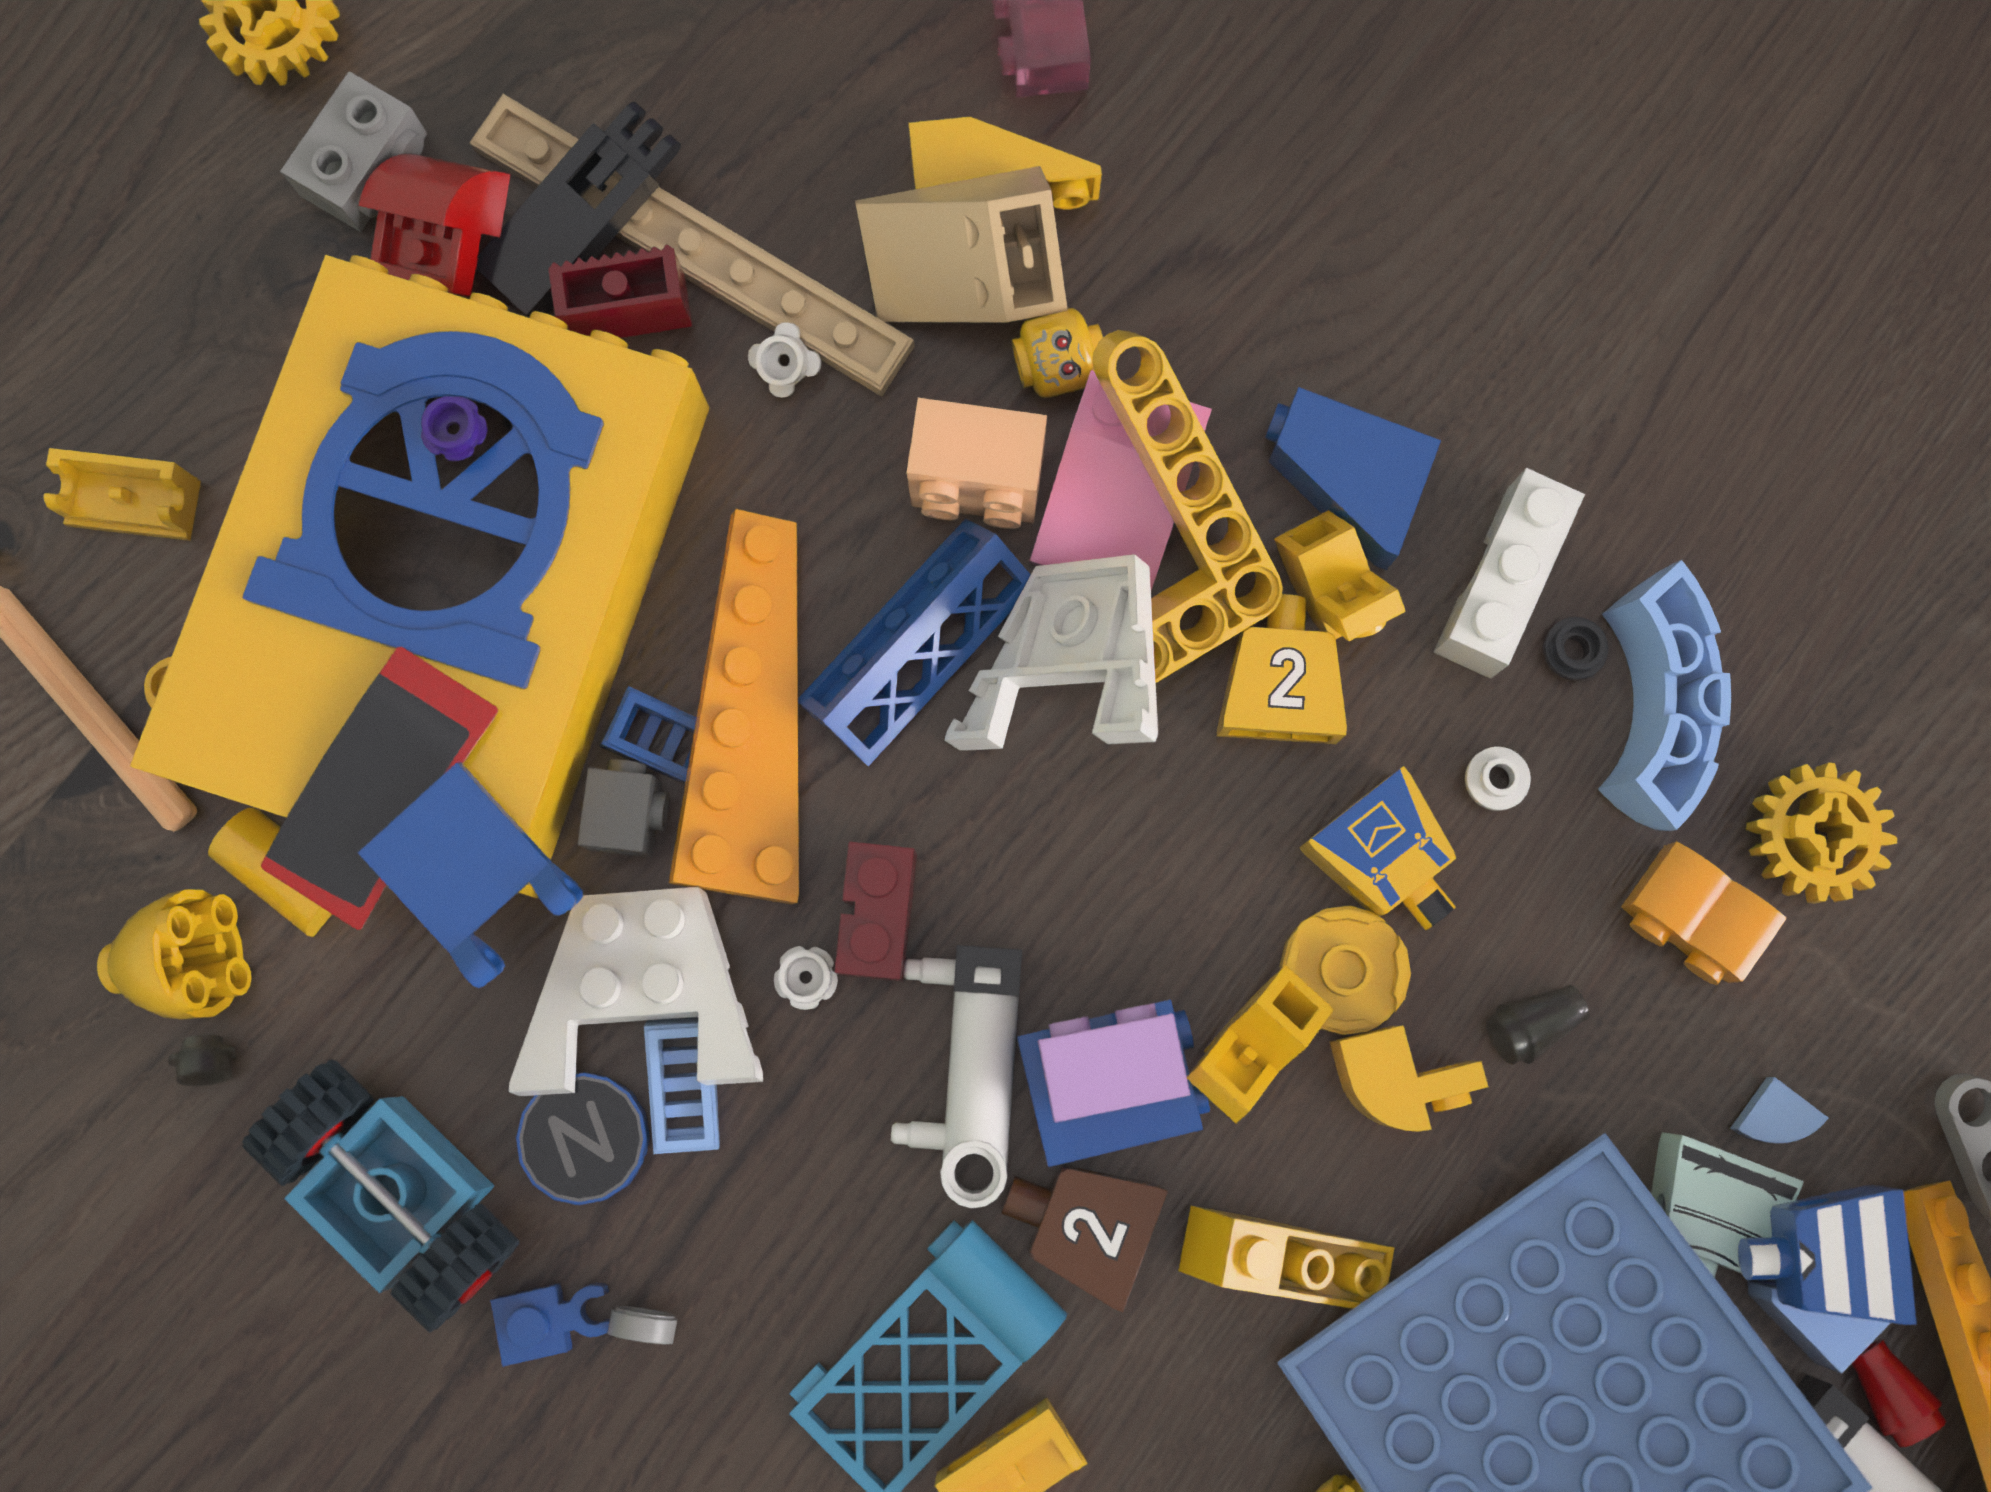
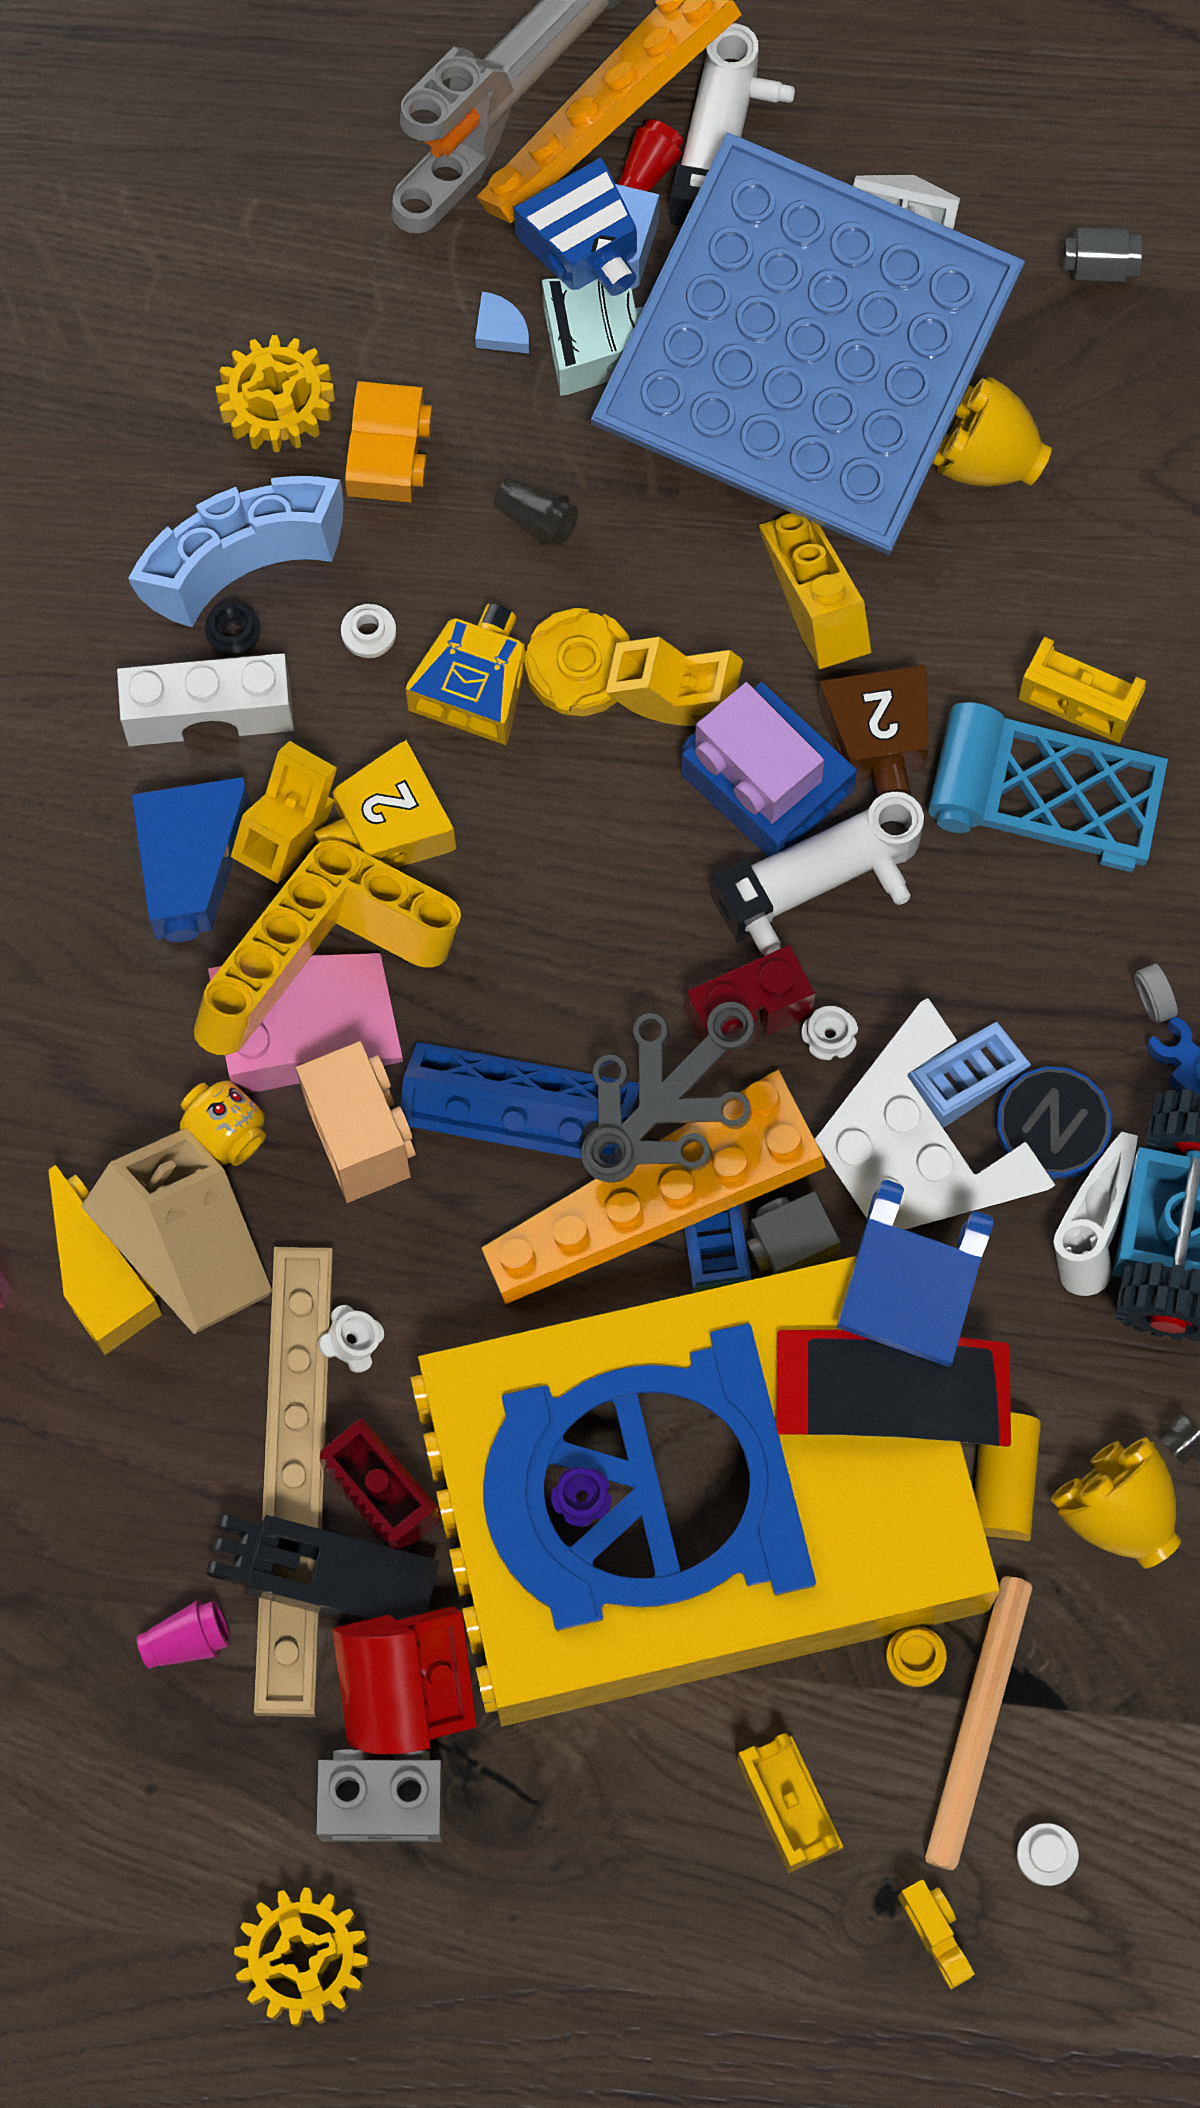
camera: 120 degrees left, 10 degrees down
(460, 1119) = (1092, 1220): none -> white piece
(604, 73) = (186, 1636): none -> dark pink cone
(816, 755) = (662, 1101): none -> dark grey plant
(1073, 628) = (442, 971): white wing -> none
(1384, 1085) = (646, 577): yellow brick -> none

